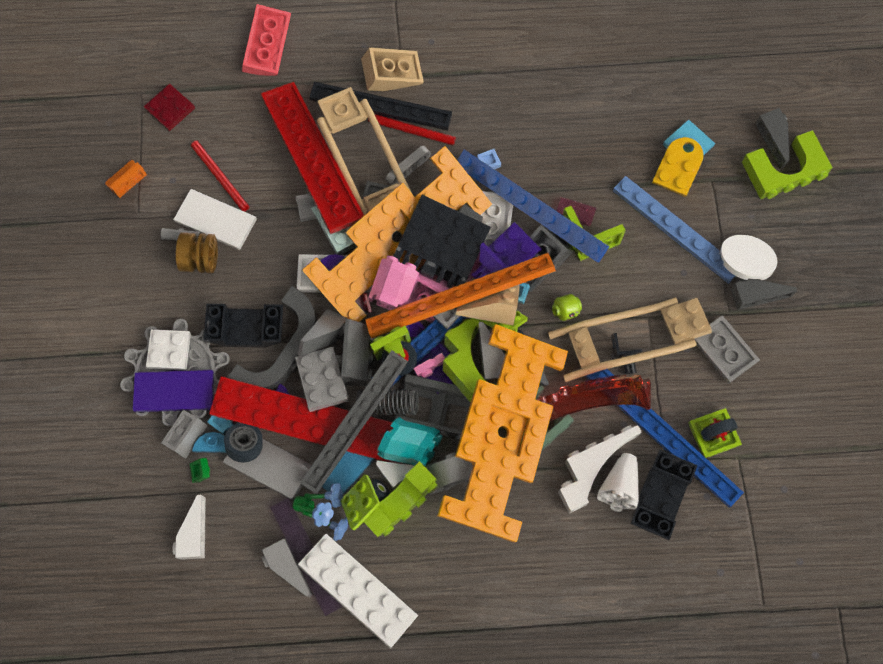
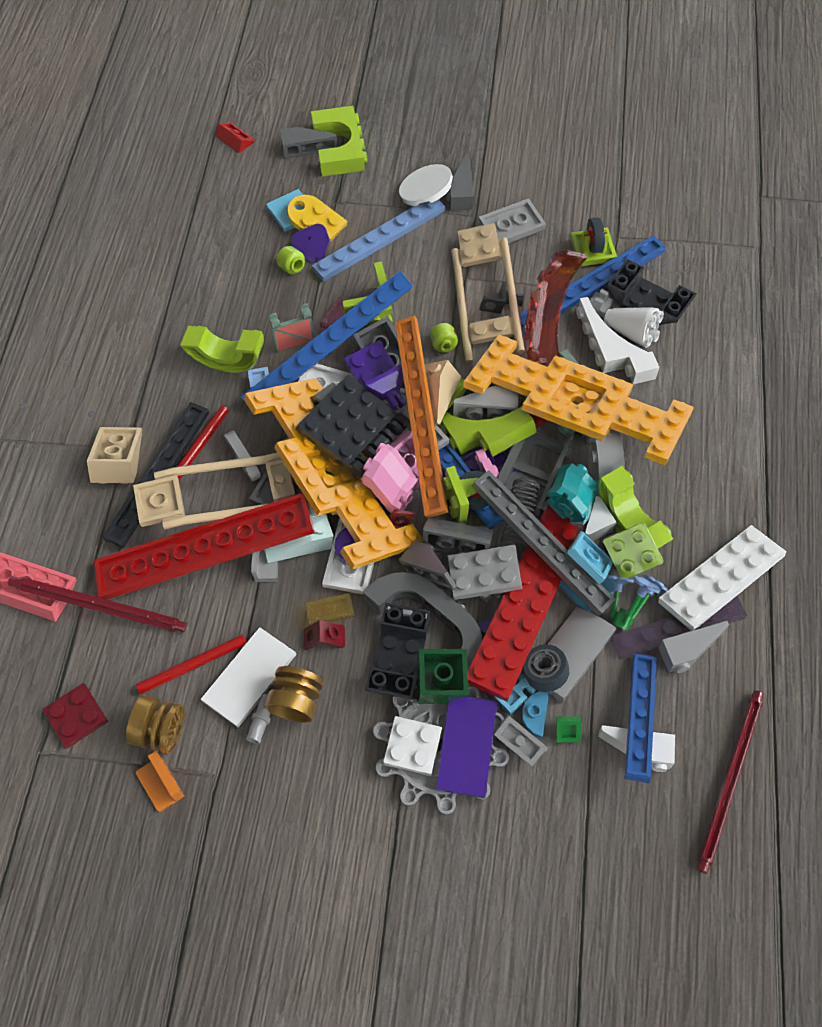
camera: 80 degrees left, 10 degrees down
(161, 160) = (155, 724): none -> pearl gold wheel
(175, 610) = (729, 784): none -> dark red piece
(212, 526) = (640, 719): none -> blue tile
(221, 357) = (442, 675): none -> dark green slope
(254, 95) = (97, 604): none -> dark red piece
(255, 268) = (325, 633): none -> dark red bracket
(278, 266) = (330, 609): none -> clear yellow plate
(351, 465) = (590, 557): none -> medium azure plate
(507, 123) = (220, 353): none -> lime brick
(533, 170) = (292, 332): none -> flag
(625, 155) = (290, 260): none -> lime head
(644, 448) = (601, 302): none -> light grey tile
(646, 173) = (316, 246): none -> dark purple piece
(768, 71) = (233, 136): none -> red slope

